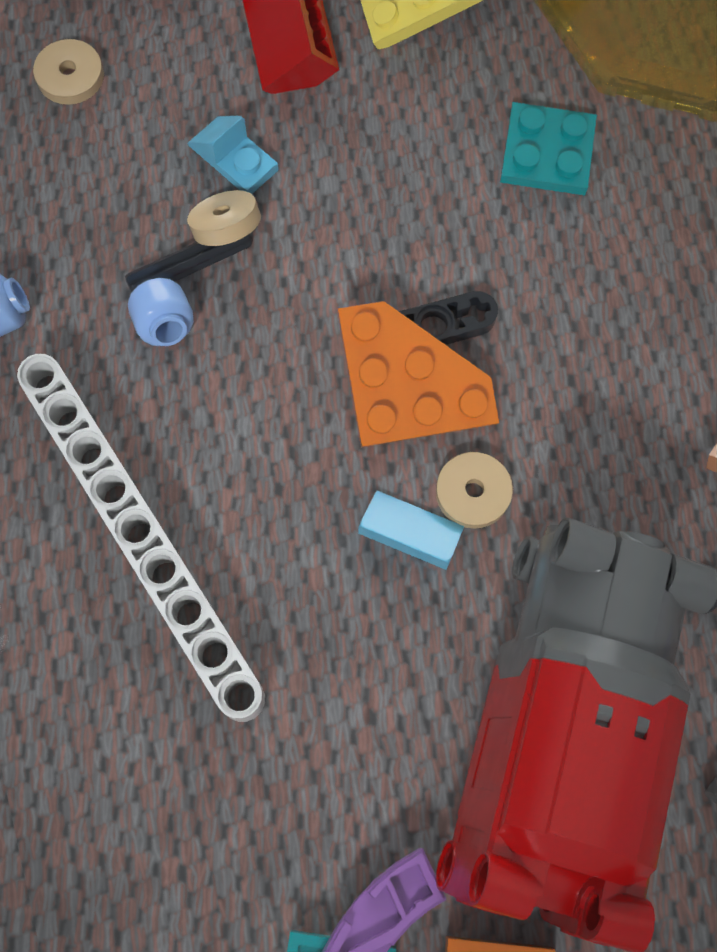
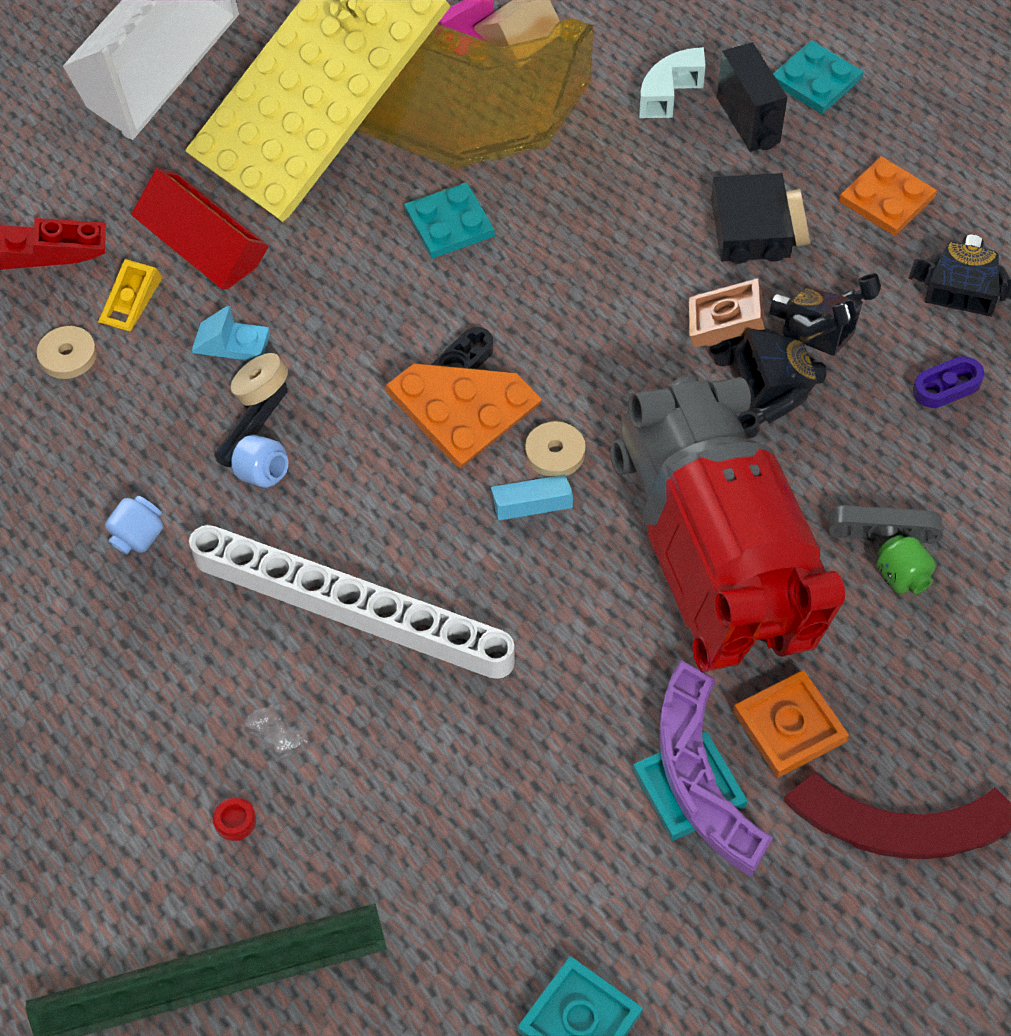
camera: 30 degrees left, 15 degrees down
(171, 43) = (130, 293): none -> yellow slope

